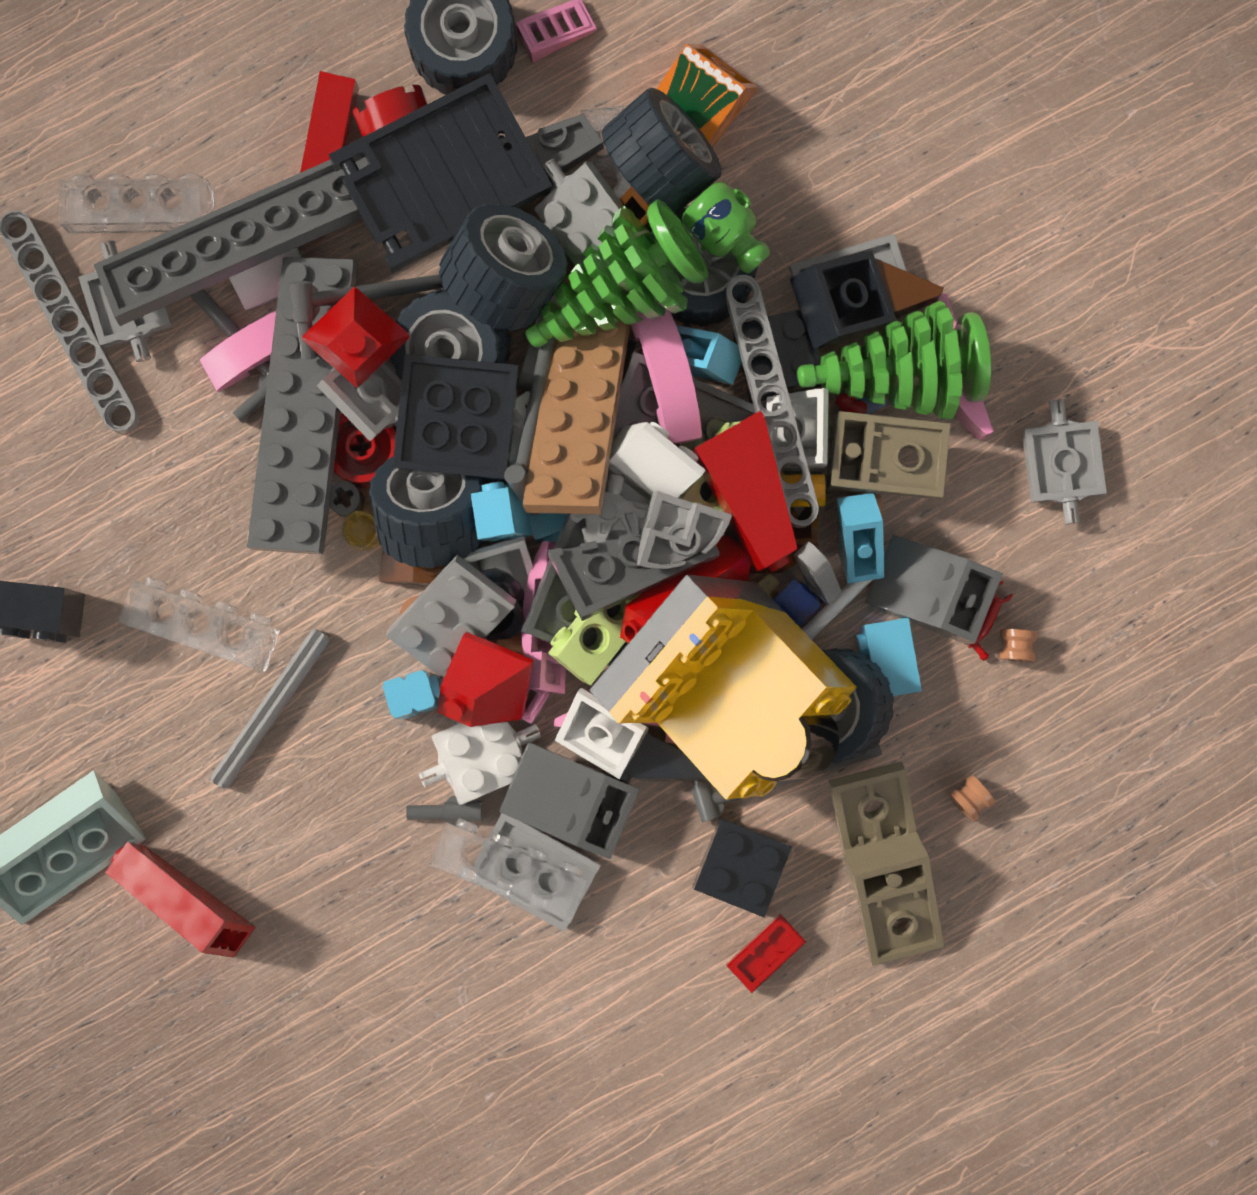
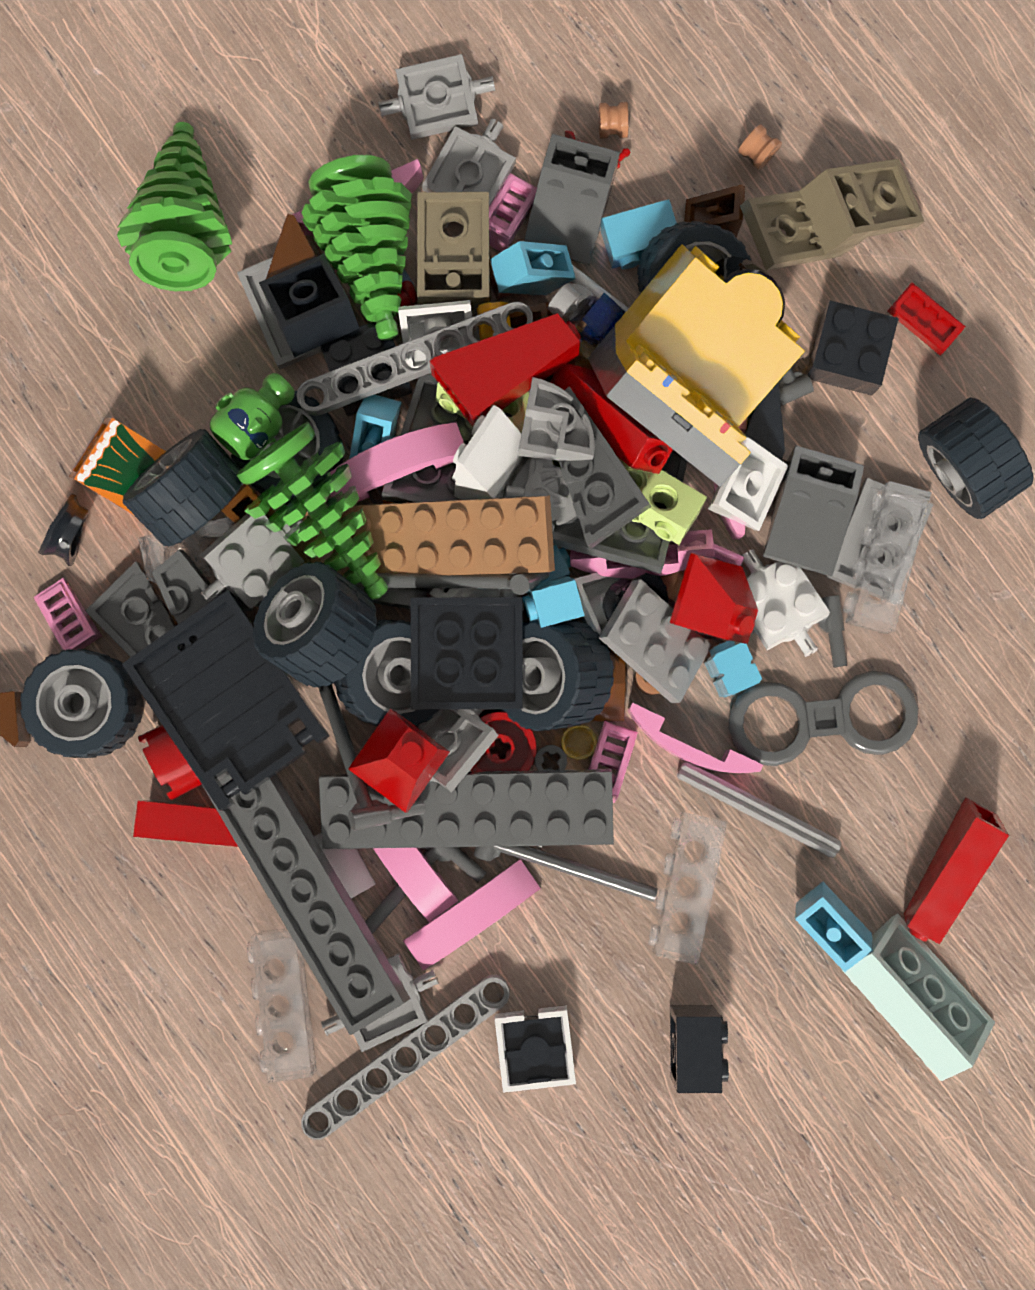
camera: 85 degrees left, 0 degrees up
(57, 449) = (535, 1049): none -> black piece
(138, 767) = (834, 926): none -> medium azure brick
(201, 405) = (472, 915): none -> bright pink slope
(230, 519) = (570, 867): none -> dark grey bar
(320, 687) = (731, 761): none -> bright pink slope
(355, 789) = (824, 718): none -> dark grey bar
(367, 575) = (619, 733): none -> bright pink slope
(549, 93) = (132, 611): none -> dark grey wing
(601, 975) = (976, 457): none -> black wheel
(639, 34) = (65, 532): none -> black hat
(905, 740) = (718, 208): none -> reddish brown slope
(906, 506) = (500, 232): none -> bright pink slope
(954, 174) = (175, 219): none -> bright green plant
(981, 488) = (471, 163): none -> light grey plate

